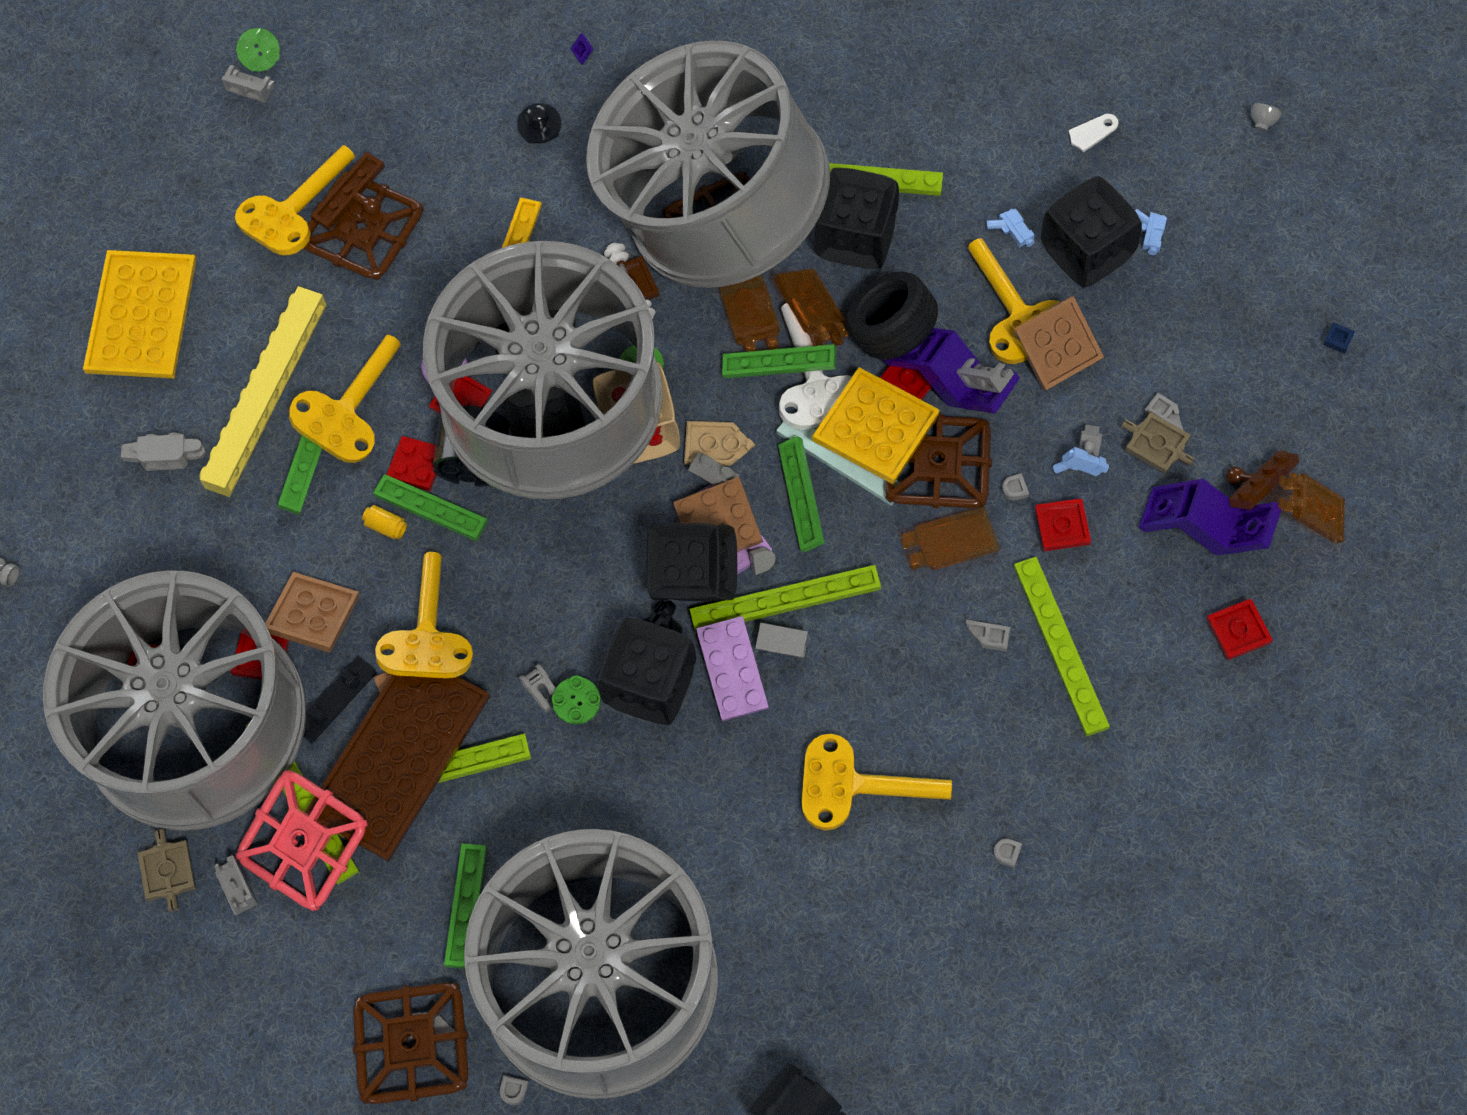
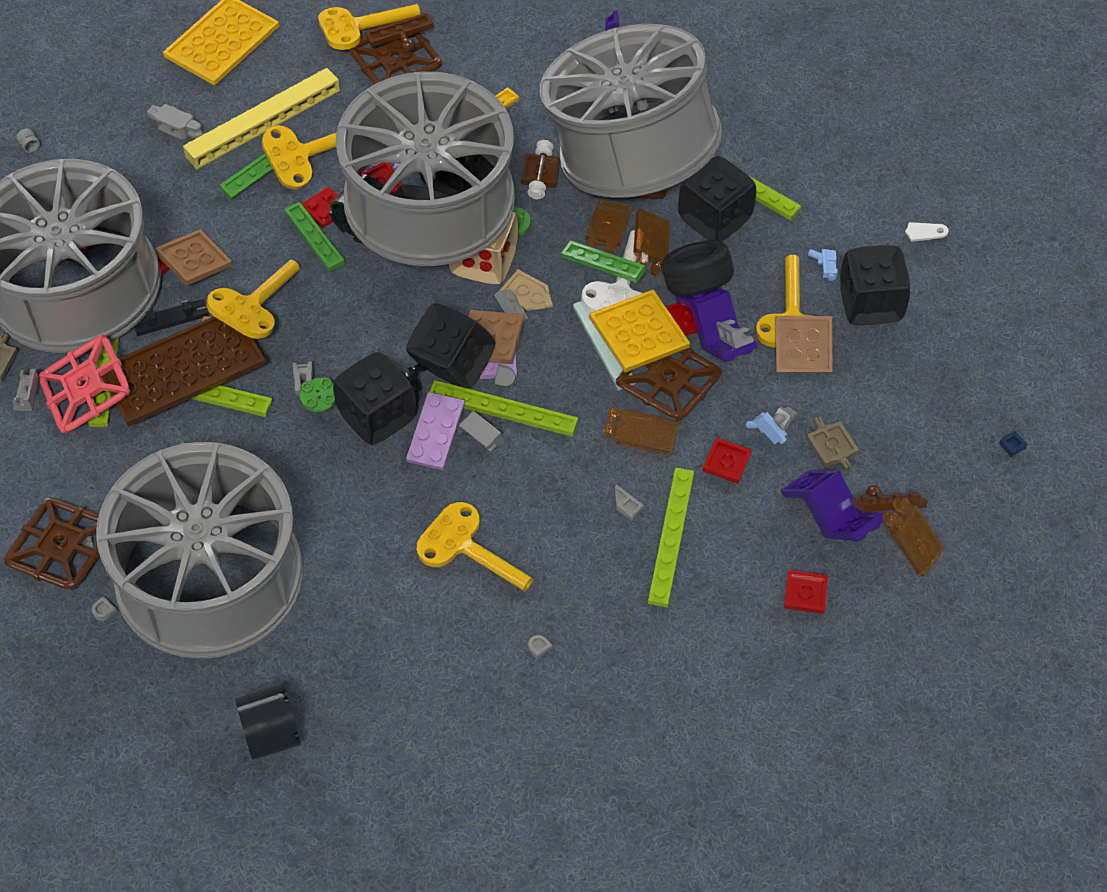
camera: 25 degrees right, 10 degrees down
(384, 522) = (279, 230): yellow head -> none
(539, 123) = (550, 49): black plate -> none
(801, 494) = (560, 350): bright green plate -> none
(1015, 487) = (711, 421): light grey tile -> none
(1154, 230) = (926, 311): light blue piece -> none
(1164, 409) = (853, 427): light grey tile -> none
(1264, 115) = (1057, 278): light grey brick -> none

